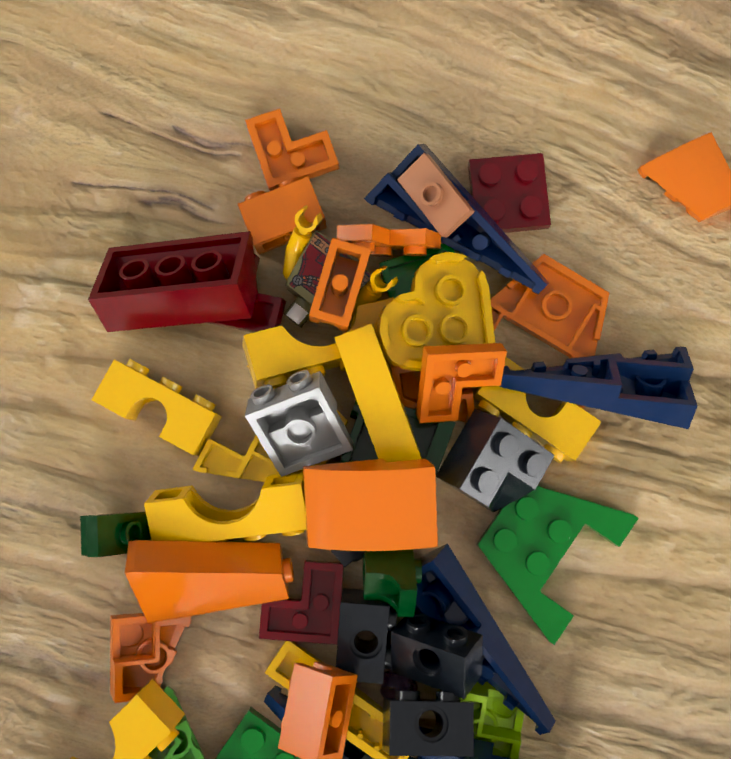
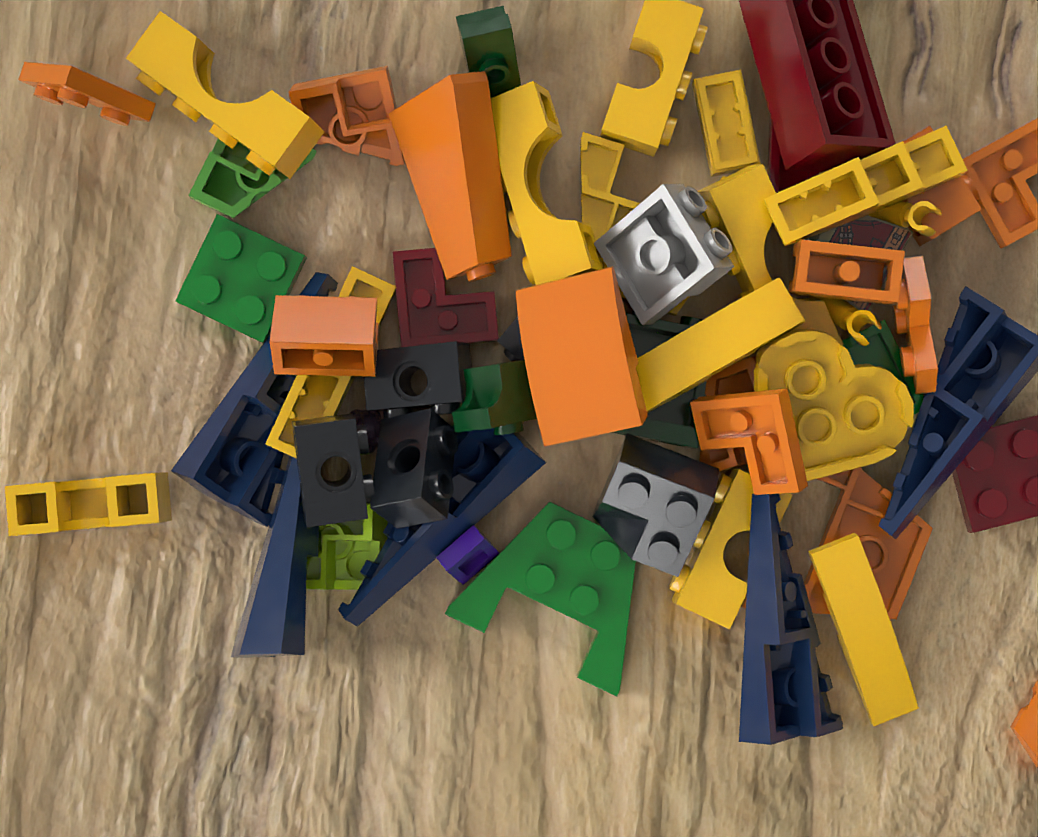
camera: 70 degrees right, 5 degrees up
(206, 357) = (725, 122): none -> yellow plate
(275, 260) = (865, 186): none -> yellow slope
(435, 195) = (984, 375): nougat plate -> none
(510, 619) = (467, 555): none -> dark purple tile
(613, 318) = (864, 629): none -> yellow slope

